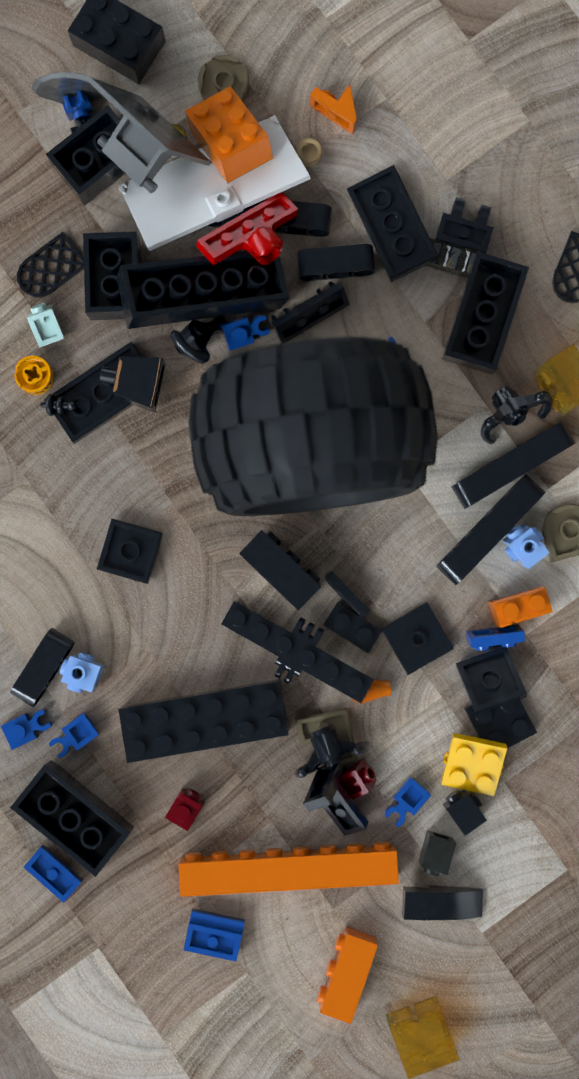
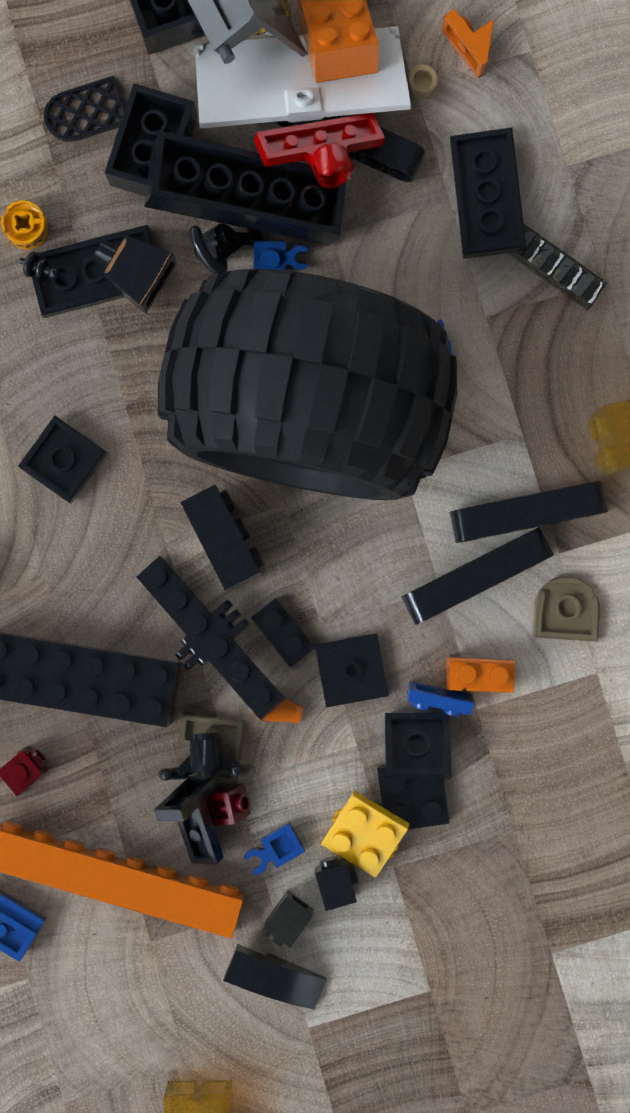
camera: 15 degrees right, 0 degrees up
(44, 324) = (56, 172): light aqua bracket -> none
(310, 312) = (362, 260): black plate -> none
(336, 262) = (408, 215): black beam -> none
(346, 594) = (288, 592): black tile -> none
(347, 974) = (138, 1020): orange brick -> none
(465, 232) = (566, 231): black plate -> none
(485, 313) = (556, 328): black brick -> none
(513, 409) = (549, 449): black piece -> none
(525, 545) = (509, 607): light blue brick -> none

